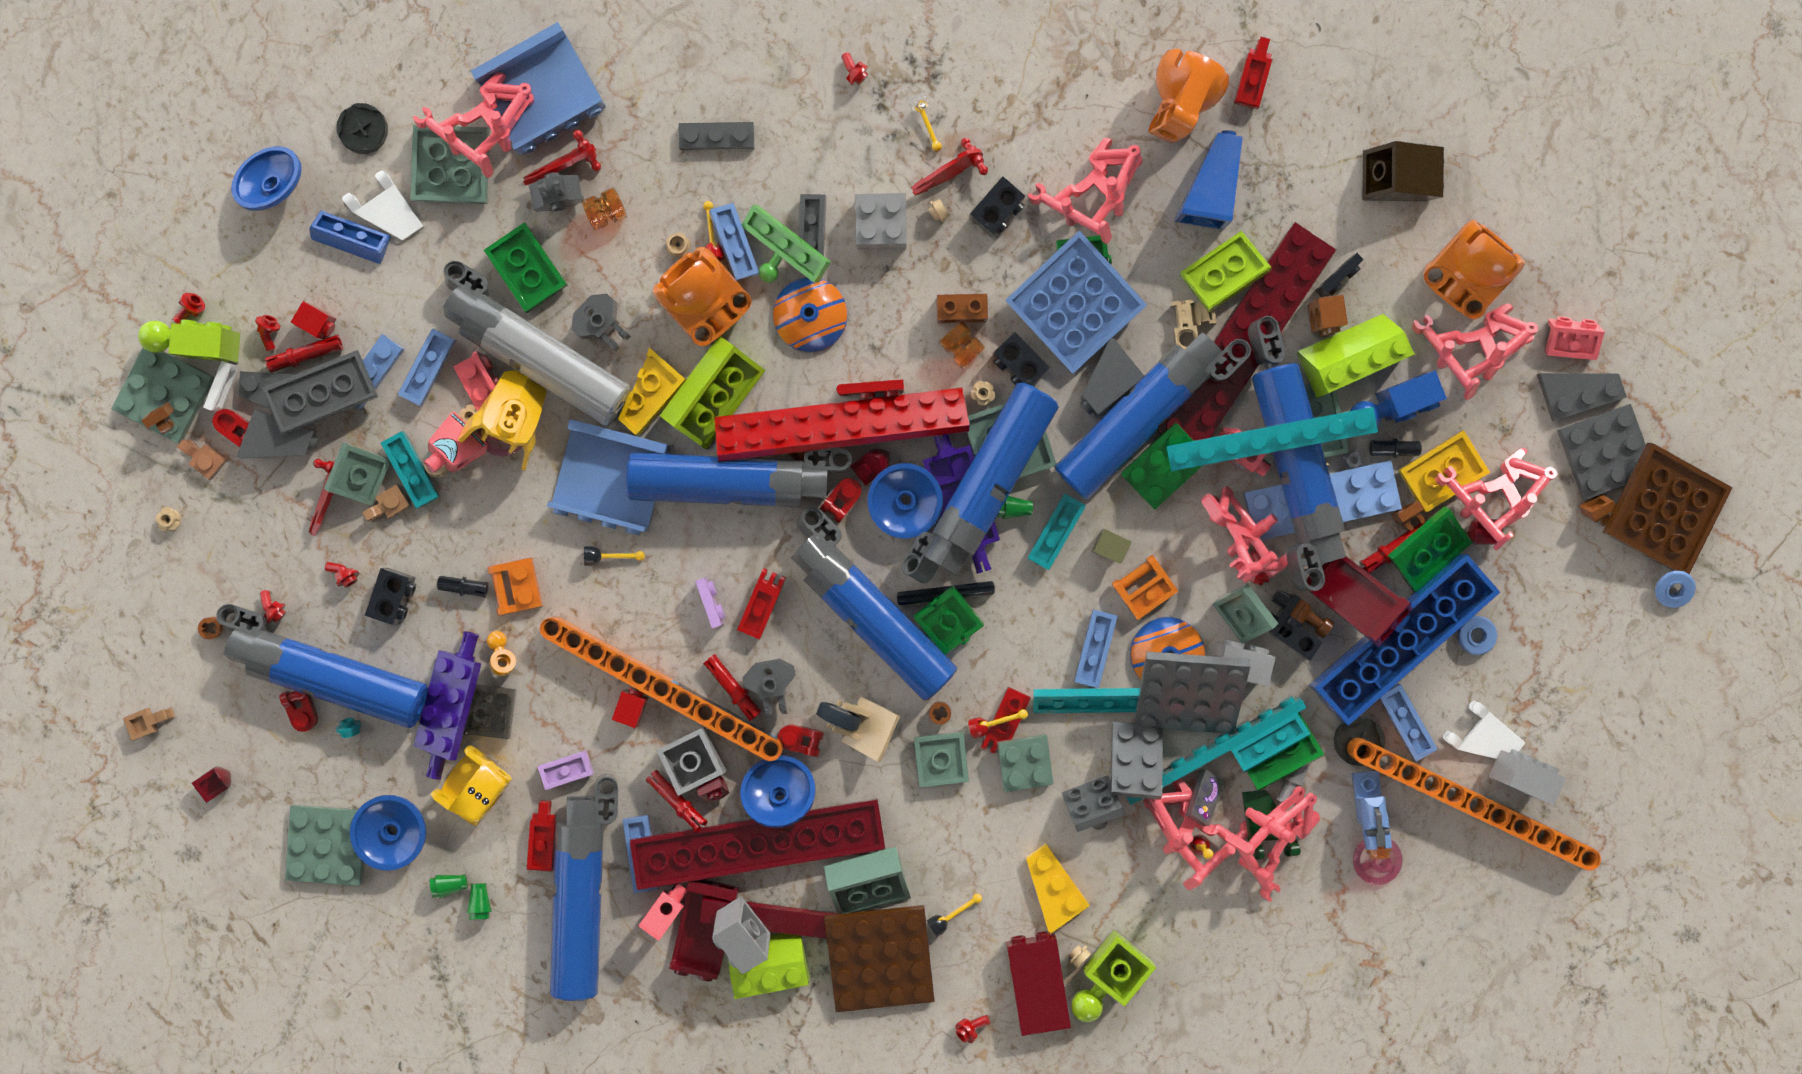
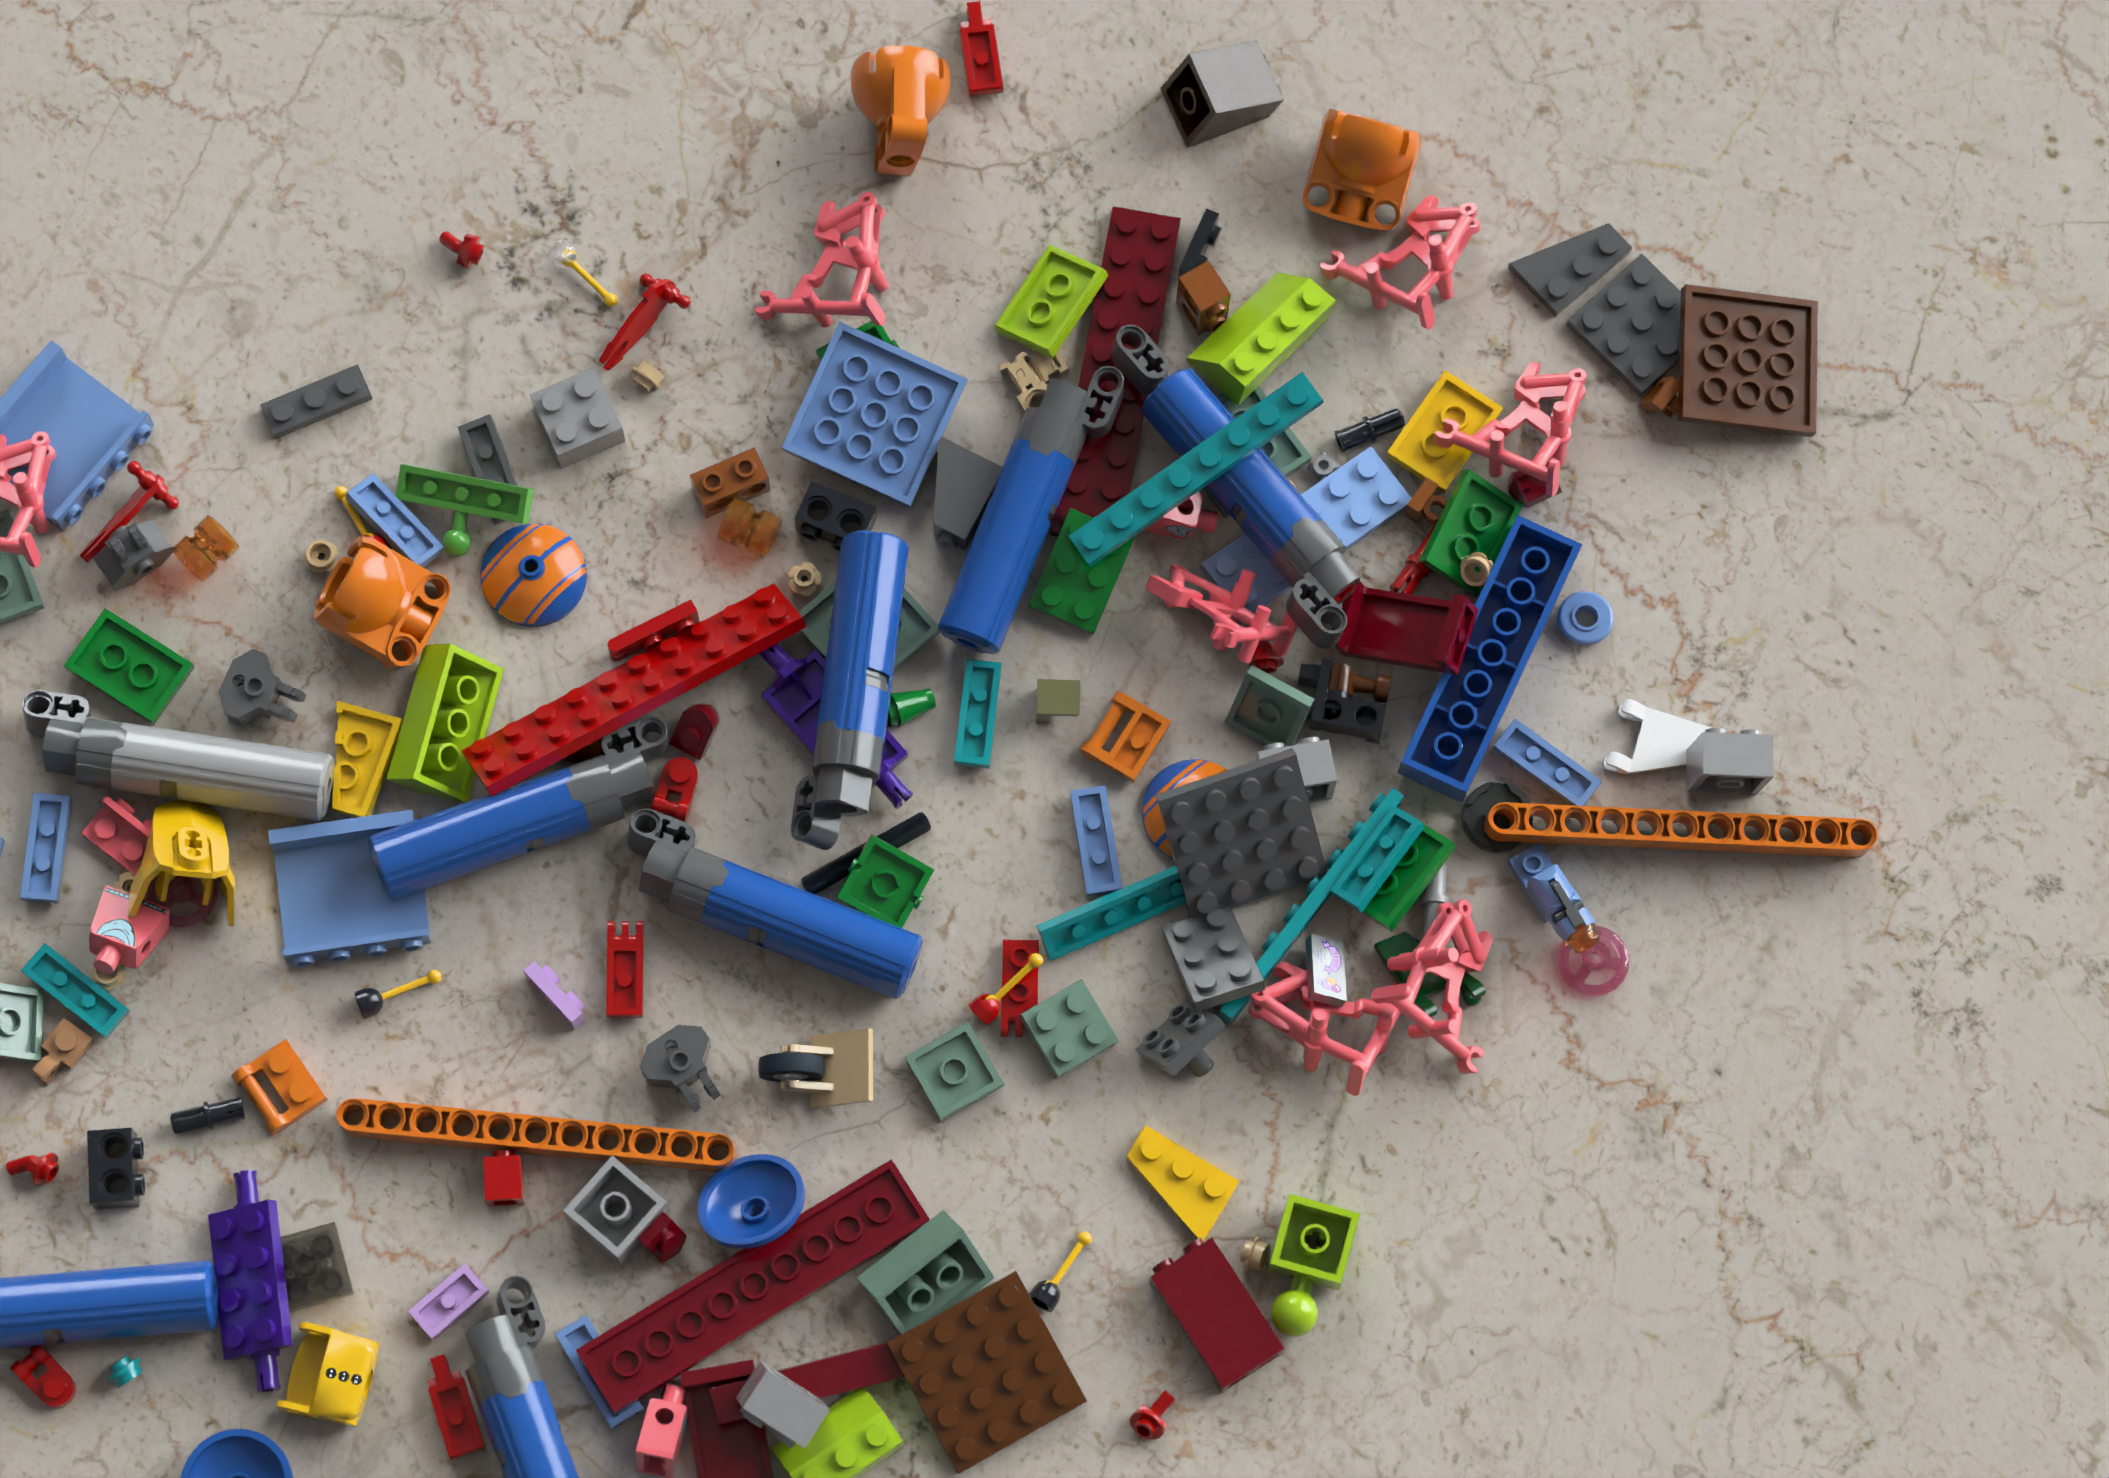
camera: 25 degrees left, 15 degrees down
(497, 641) = (302, 1190): light orange plate -> none
(683, 808) = (631, 1278): red pin -> none
(732, 687) = (644, 1101): red pin -> none
(792, 736) = (742, 1130): red plate -> none
(887, 506) = (756, 727): blue dish -> none
(943, 720) = (935, 1019): dark orange bush -> none
(993, 204) = (715, 339): black brick -> none
(1202, 846) = (1350, 1035): red hinge -> none
(1214, 187) = (989, 209): blue slope -> none
(1406, 398) = (1350, 360): blue brick -> none
(1417, 580) = (1468, 571): none -> tan plate
(1574, 338) = (1532, 204): coral bracket -> none
(1684, 594) = (1825, 455): medium blue piece -> none

